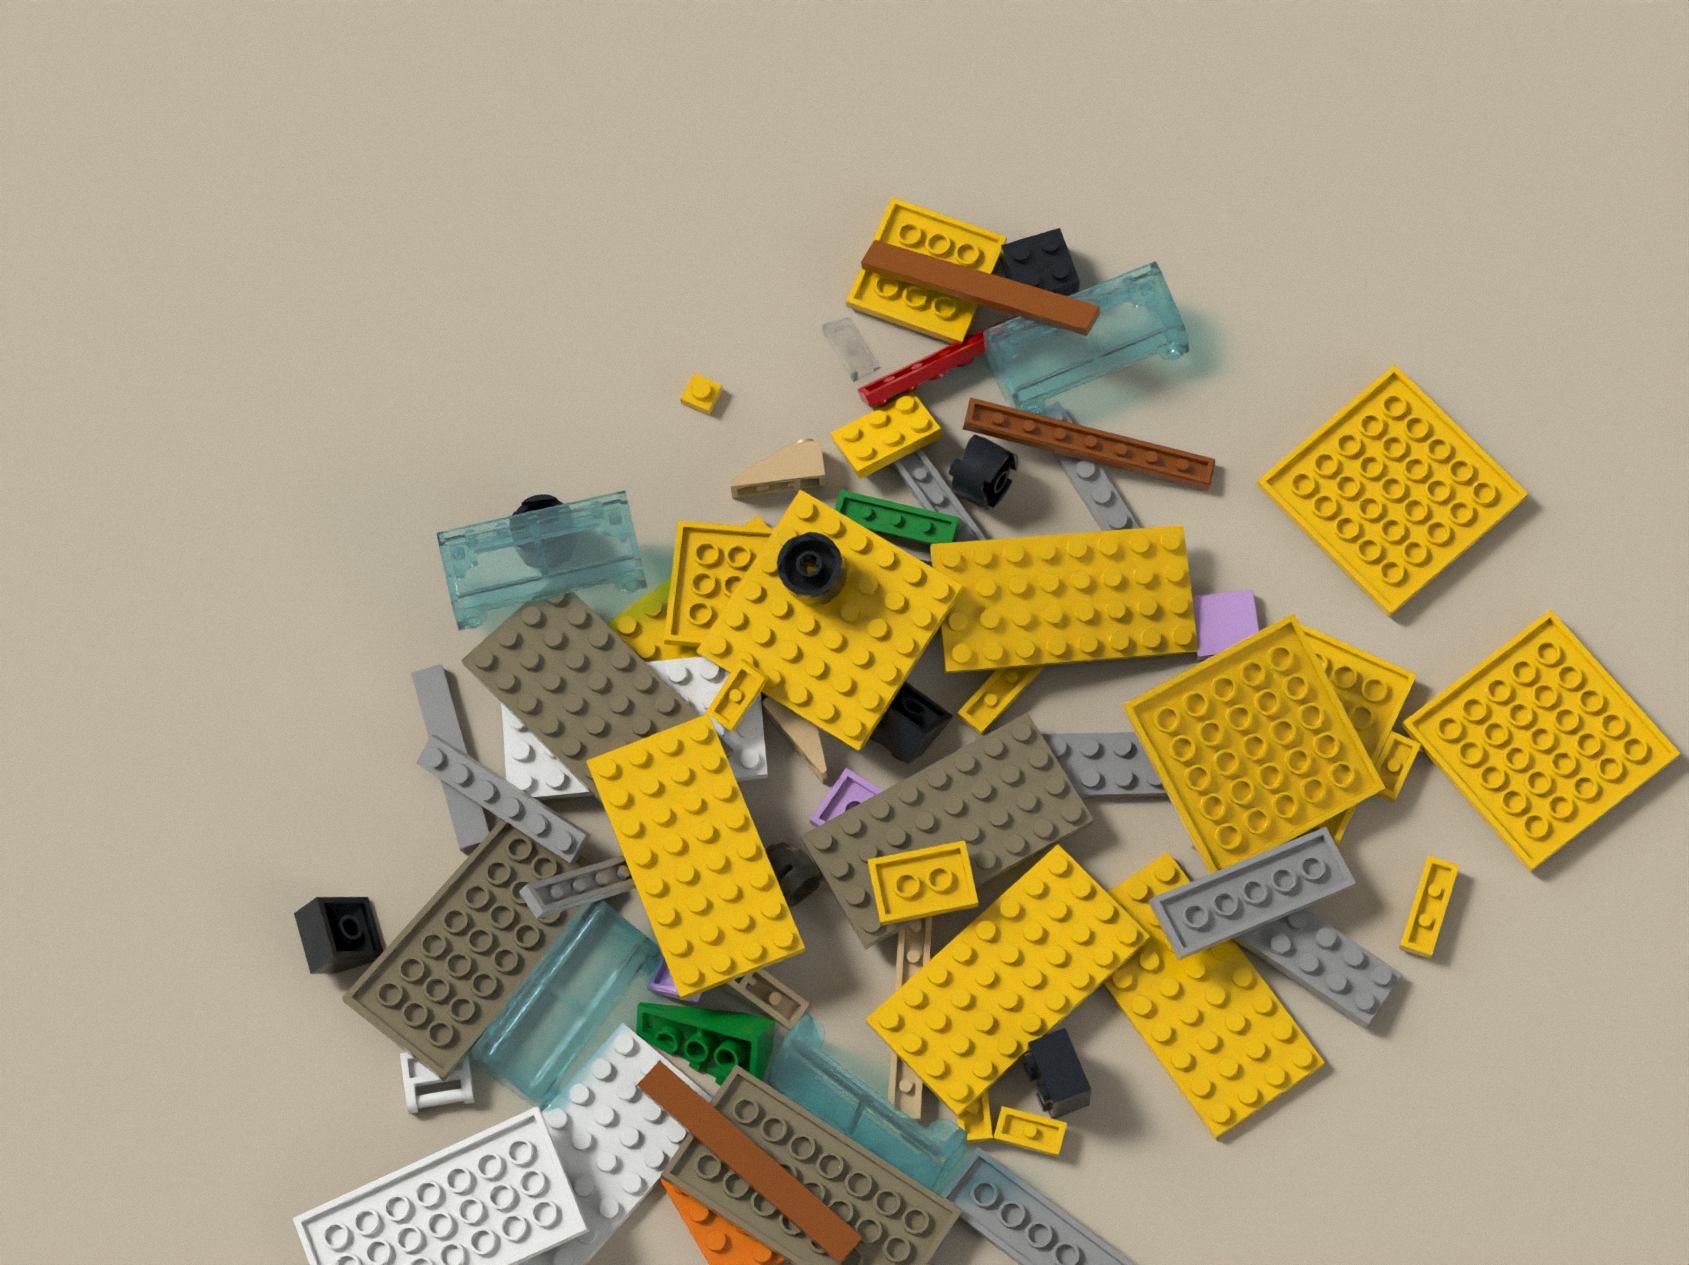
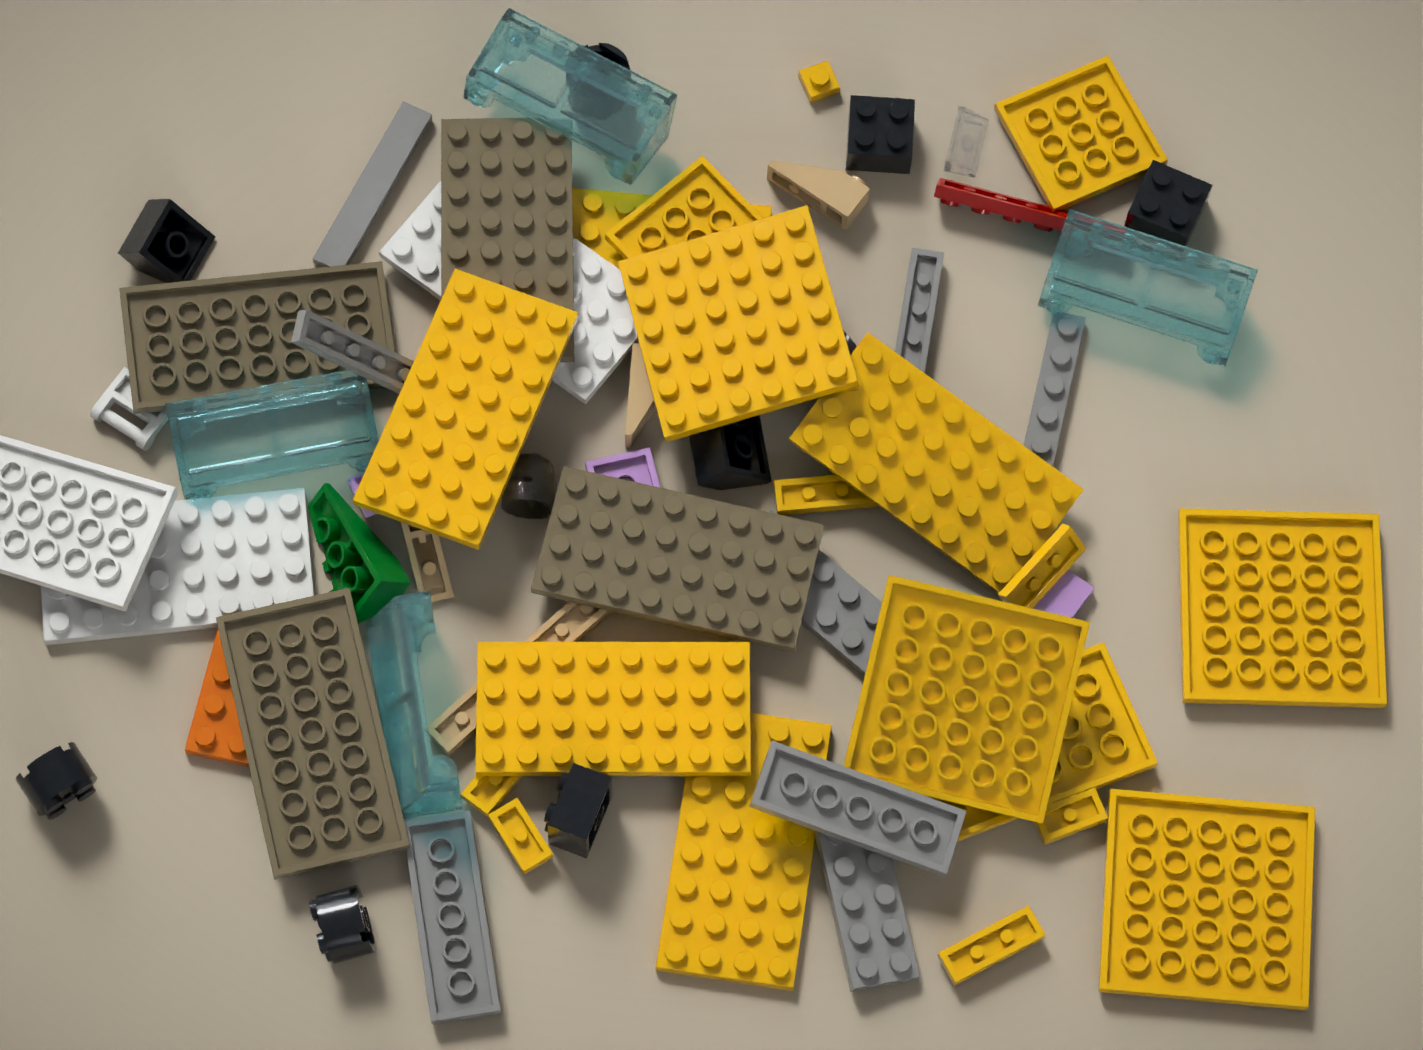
camera: 35 degrees right, 0 degrees up
(503, 799) = (375, 248): light grey plate -> none
(737, 694) = (614, 318): yellow plate -> none
(749, 1162) = (287, 667): dark orange tile -> none
(786, 394) = (880, 134): none -> black brick
(806, 552) = (756, 285): black brick -> none
(886, 435) = (926, 229): yellow plate -> none
(898, 519) = (869, 297): green plate -> none
(922, 883) = (615, 578): yellow plate -> none
(981, 287) = (1102, 177): dark orange tile -> none
(983, 472) = (970, 318): black brick -> none
(1089, 444) = (1074, 368): dark orange tile -> none
(1209, 608) = (1044, 568): none -> yellow plate

